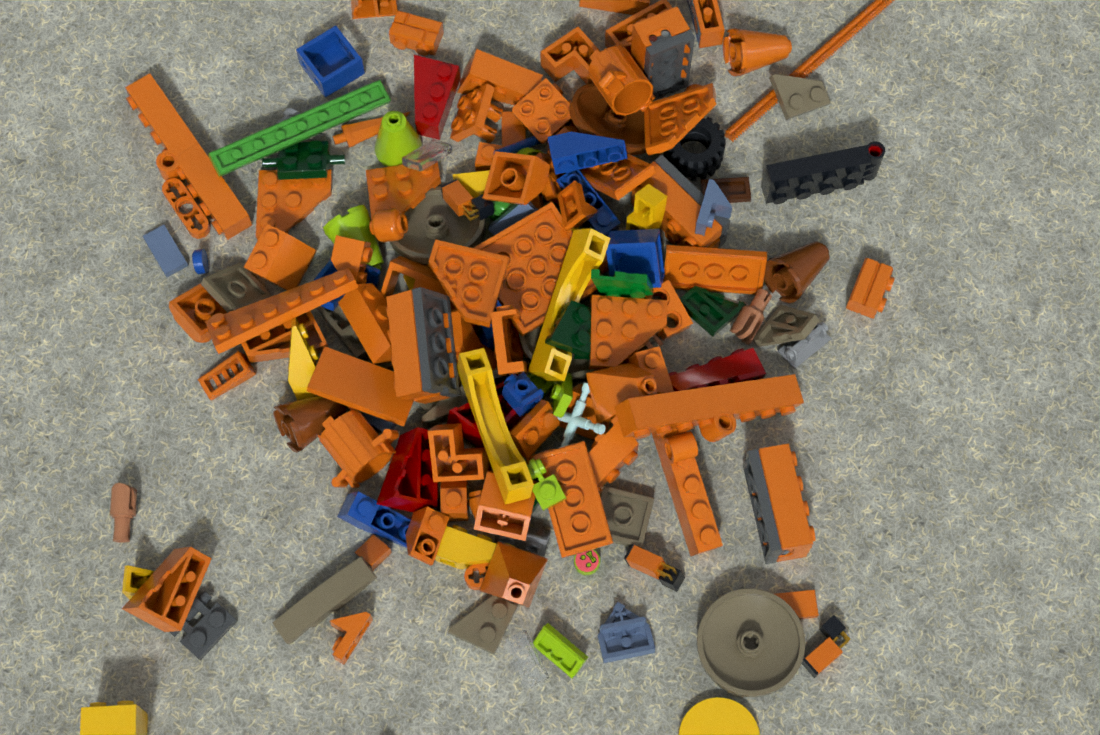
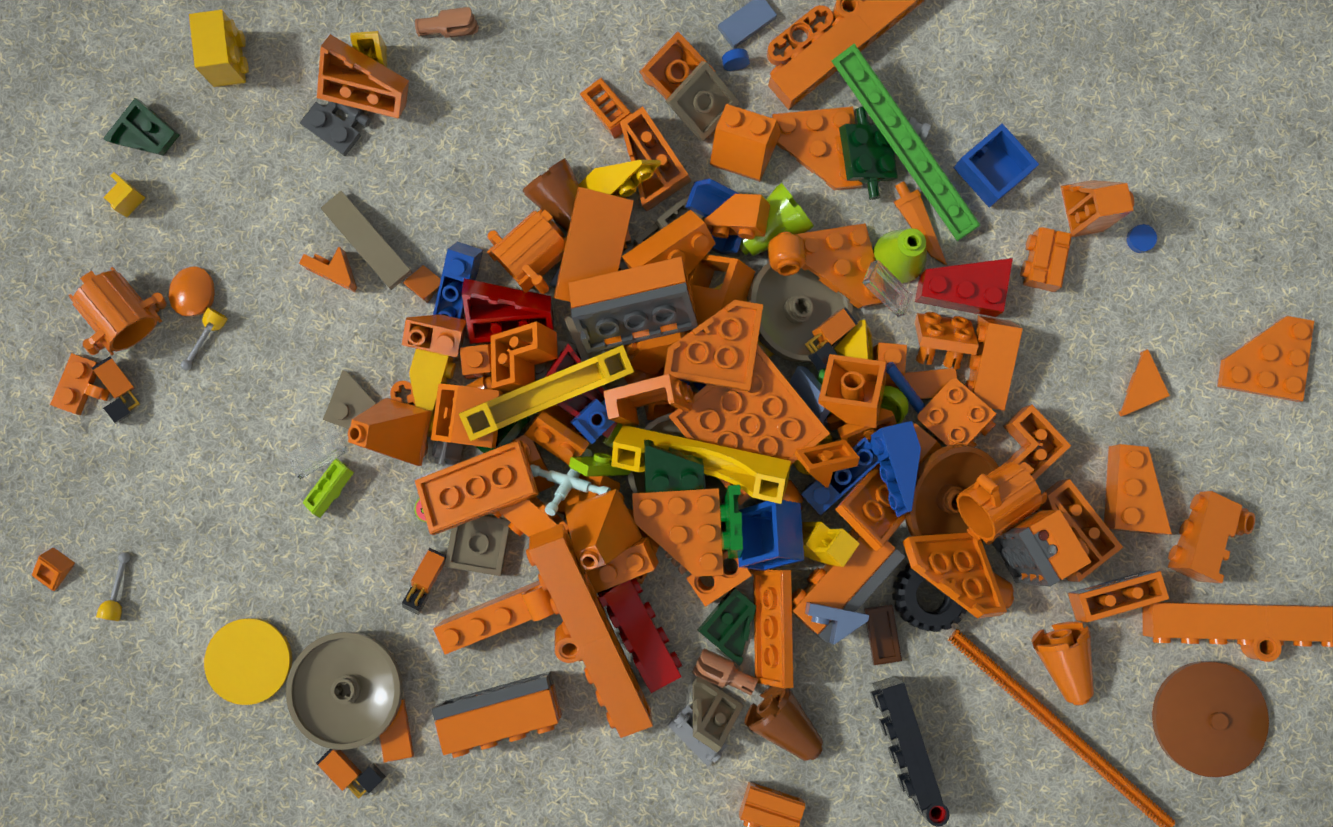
camera: 80 degrees right, 15 degrees up
(256, 318) = (664, 134): orange wing -> none
(548, 490) = (479, 458): lime plate -> none
(624, 636) = (351, 554): sand blue slope -> none
(798, 94) = (1014, 716): dark tan wing -> none

